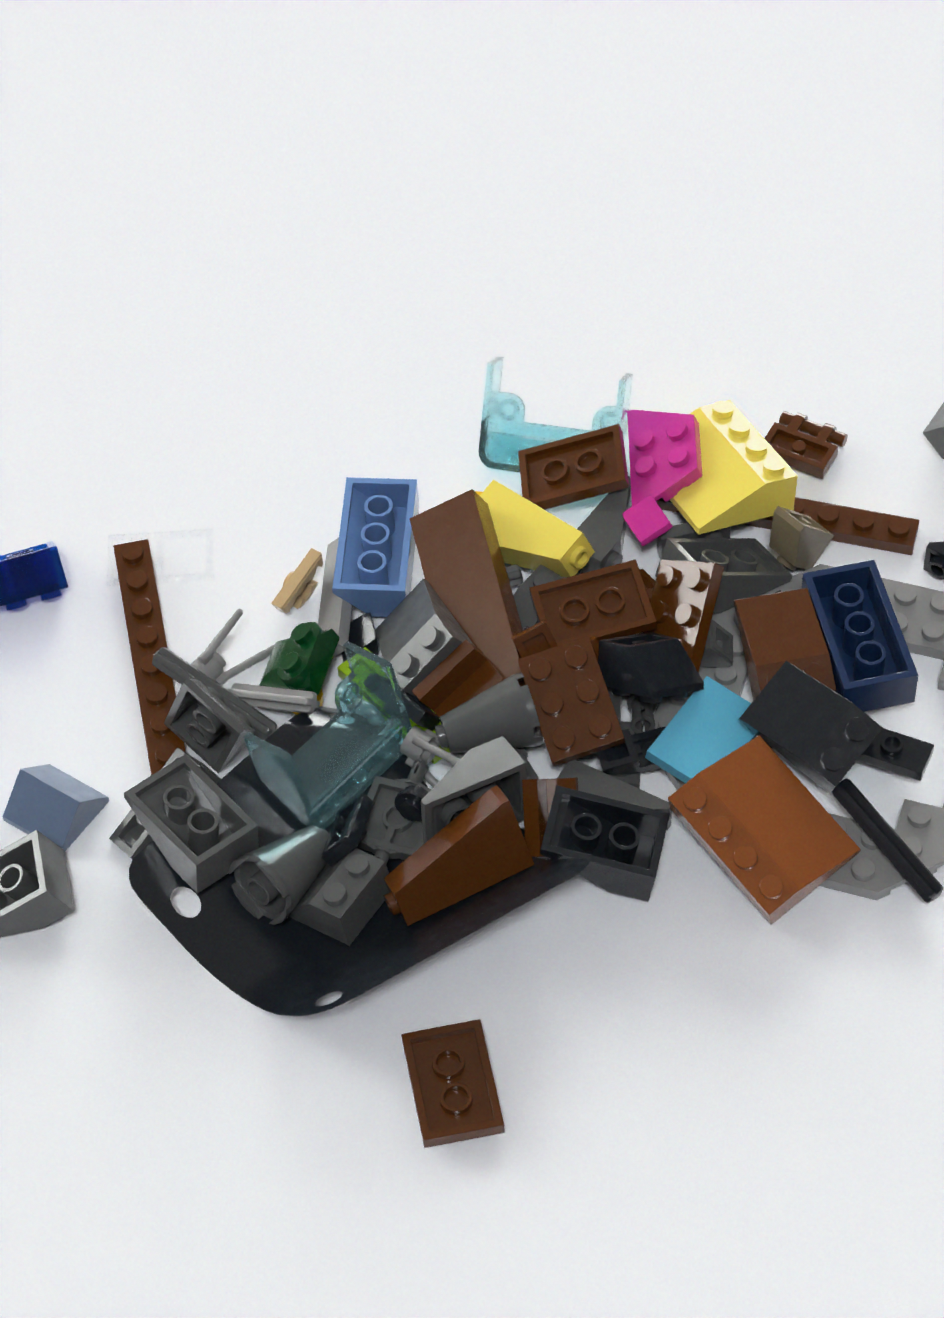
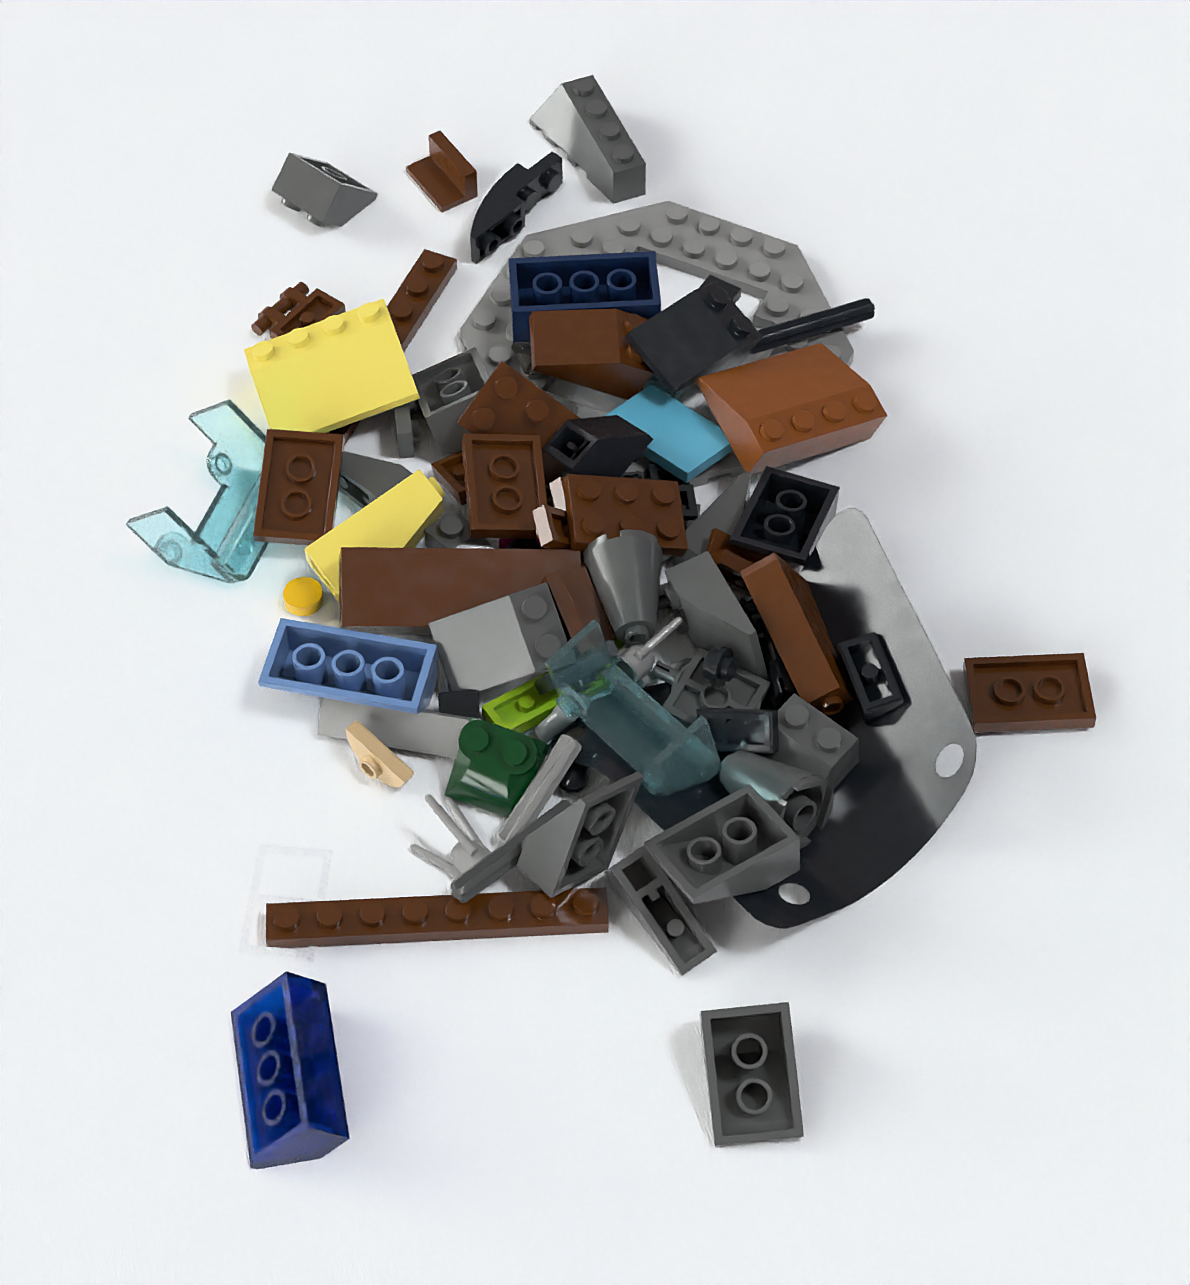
camera: 85 degrees left, 0 degrees up
(52, 804) = (632, 1024): sand blue slope -> none
(419, 921) = (869, 676): none -> black slope
(646, 520) = (390, 436): dark pink slope -> none
(662, 453) = (310, 404): dark pink wing -> none
(797, 539) = (440, 330): dark tan slope -> none

